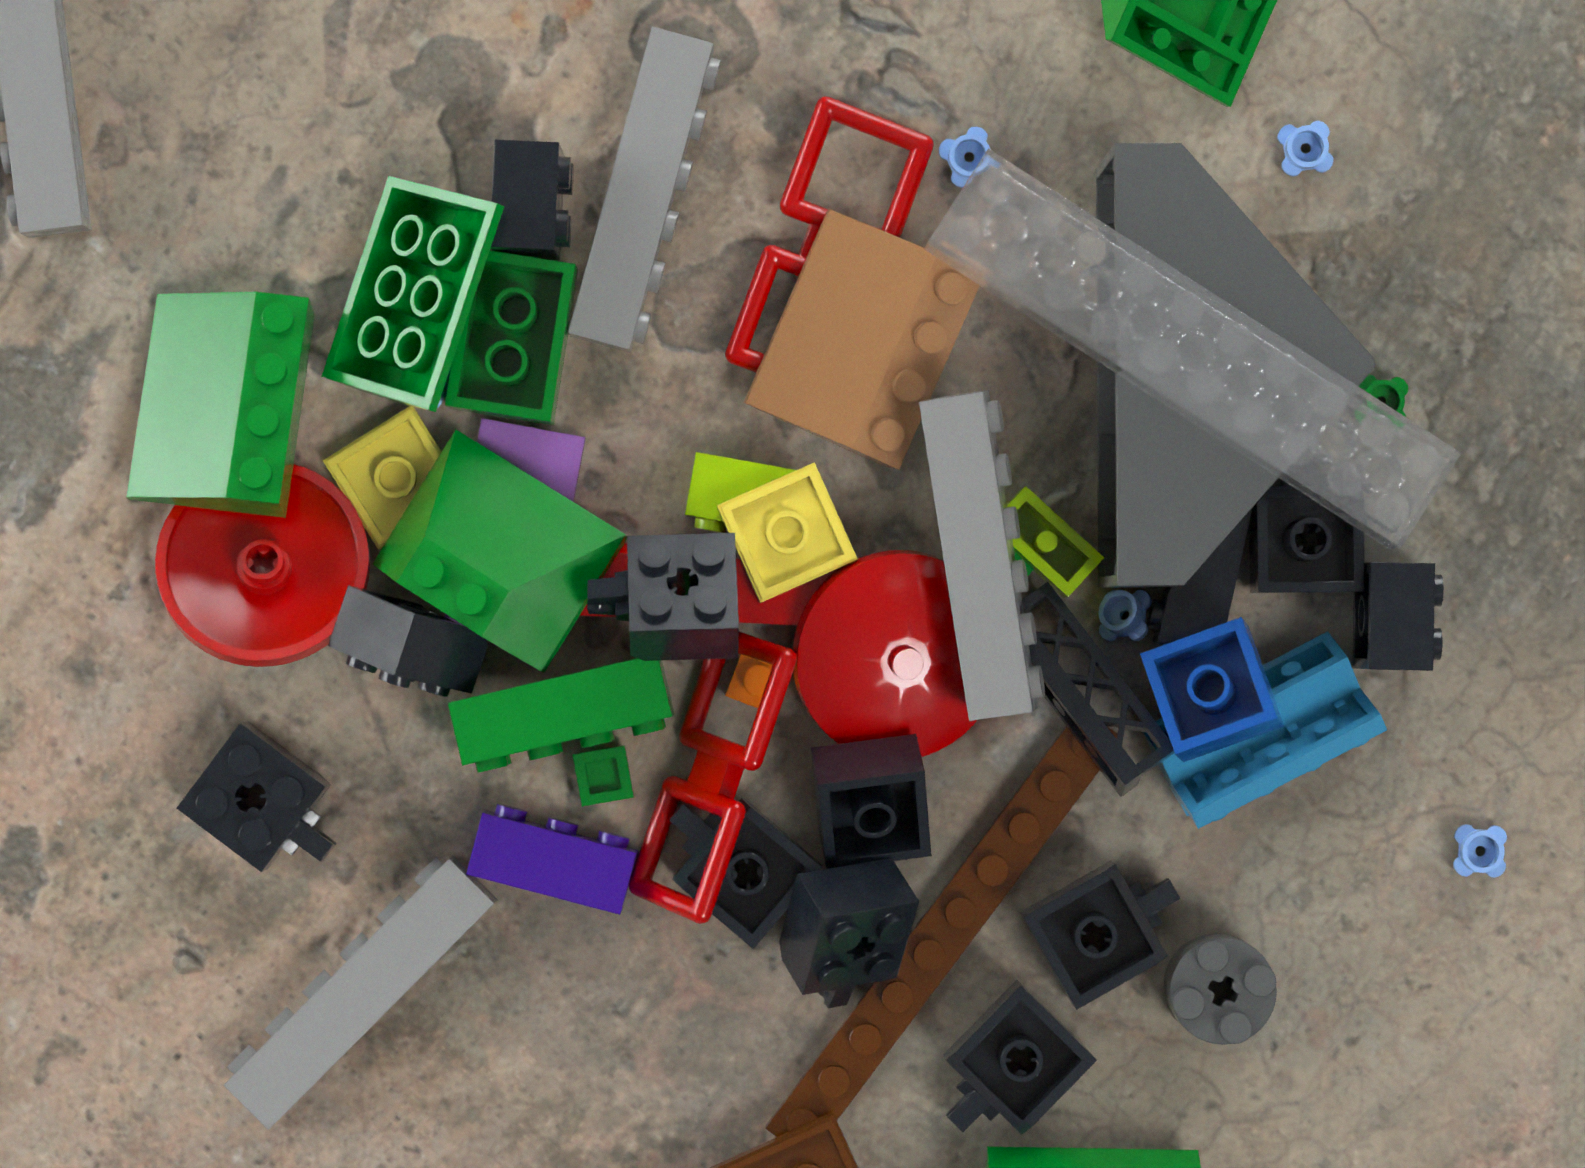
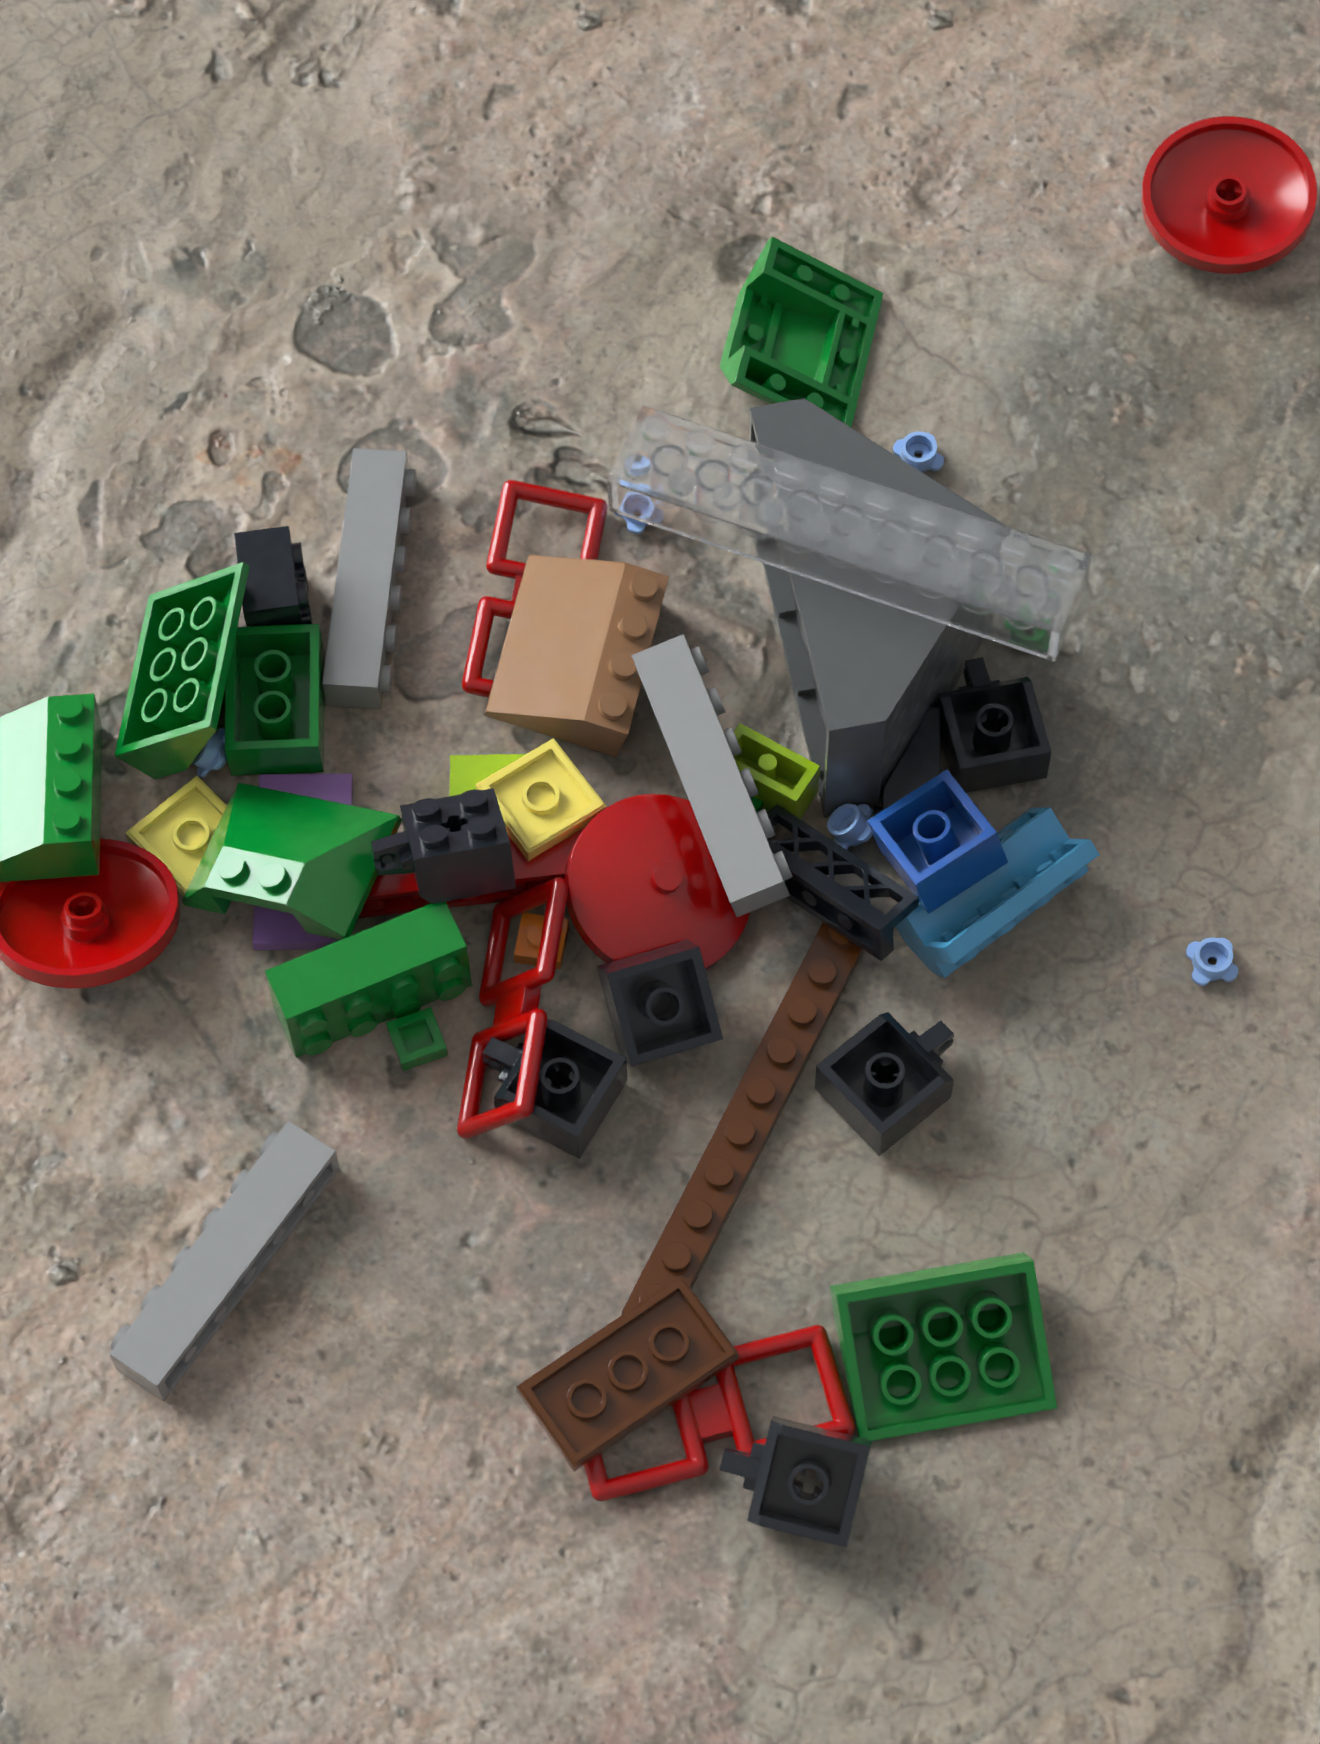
camera: 10 degrees left, 25 degrees down
(259, 831) = (79, 1115): black hinge -> none
(407, 643) = (222, 938): black hinge -> none
(552, 859) = (384, 1115): dark purple brick -> none
(847, 928) = (659, 1110): black hinge -> none
(1014, 1092) = (831, 1227): black hinge -> none
(1230, 1017) = (1015, 1084): dark grey brick -> none
(1397, 617) = (1085, 773): black brick -> none

